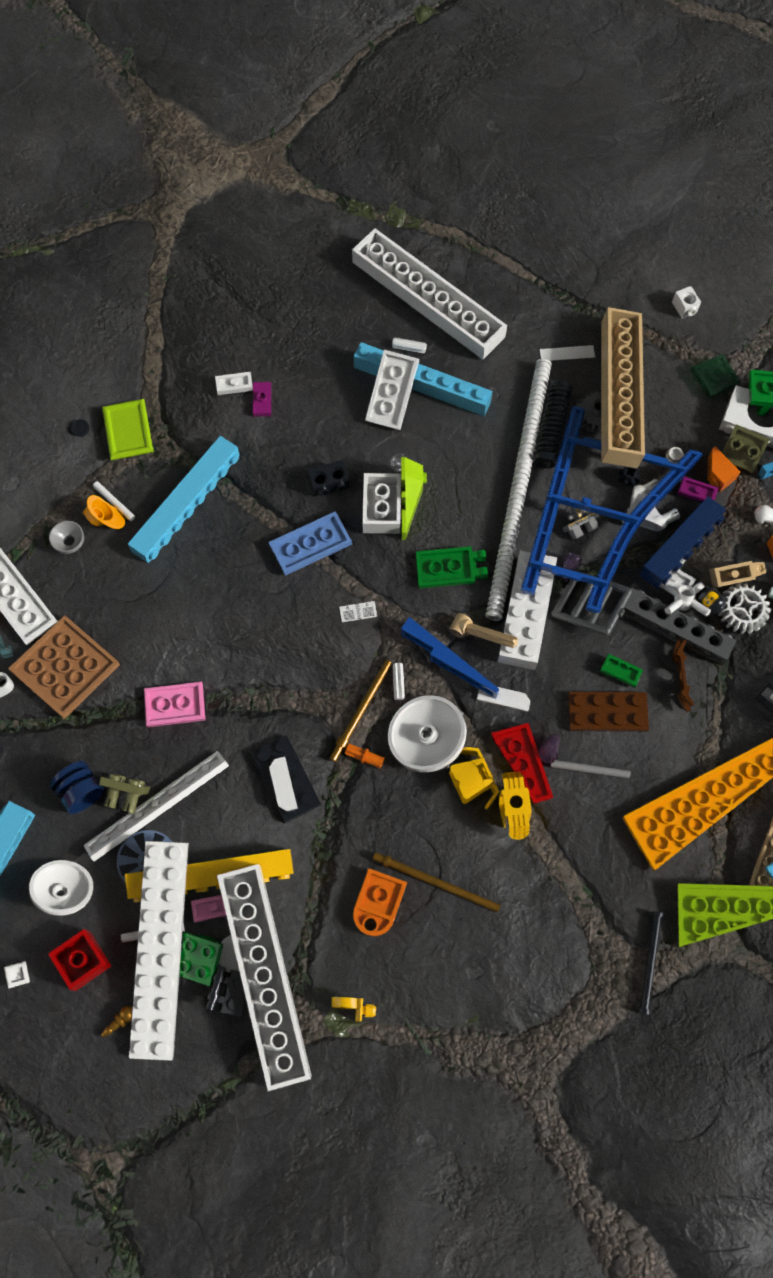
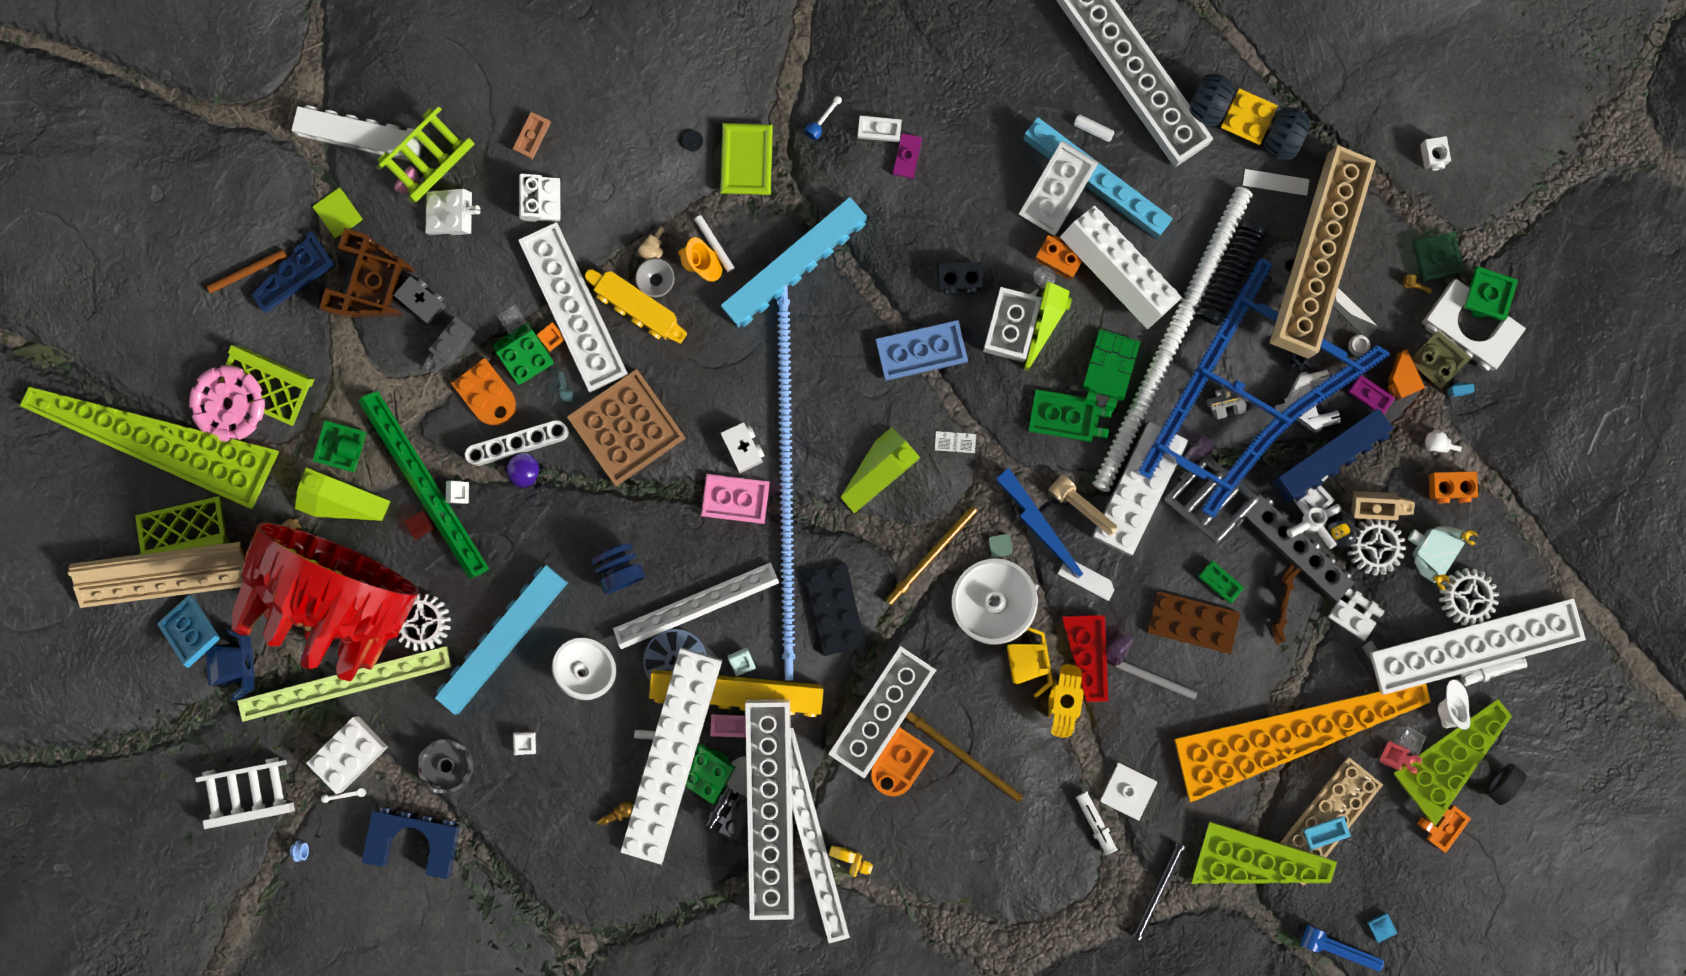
camera: 15 degrees right, 15 degrees up
(54, 563) = (637, 305): none -> yellow hinge
(59, 513) = (651, 246): none -> tan piece
(79, 960) = (590, 746): red brick -> none
(117, 783) = (661, 575): olive plate -> none
(174, 667) = (742, 459): none -> white brick
(179, 396) = (814, 130): none -> hinge
(209, 846) = (741, 662): none -> light aqua tile
(218, 685) = (788, 654): none -> light blue hose
(282, 784) = (830, 618): white piece -> none
(299, 644) = (882, 465): none -> lime wedge
(318, 1008) = (815, 850): none -> white plate
(349, 858) = (882, 712): none -> white brick
(364, 756) = (923, 606): orange axle -> none
(398, 681) = (979, 533): white axle -> none
(409, 443) = (1058, 257): none -> orange brick
(420, 687) = (1000, 545): none -> sand green piece
(460, 437) = (1120, 267): none -> white brick
(474, 519) = (1110, 368): none -> green tile
(532, 304) = (1250, 116): none -> black plate
(557, 893) = (1108, 846): none -> white pin
(595, 876) = (1128, 791): none -> white plate
(662, 435) = (1354, 314): none -> sticker
(699, 400) = (1410, 282): none -> pearl gold hand
(744, 675) = (1353, 620): none -> white plate

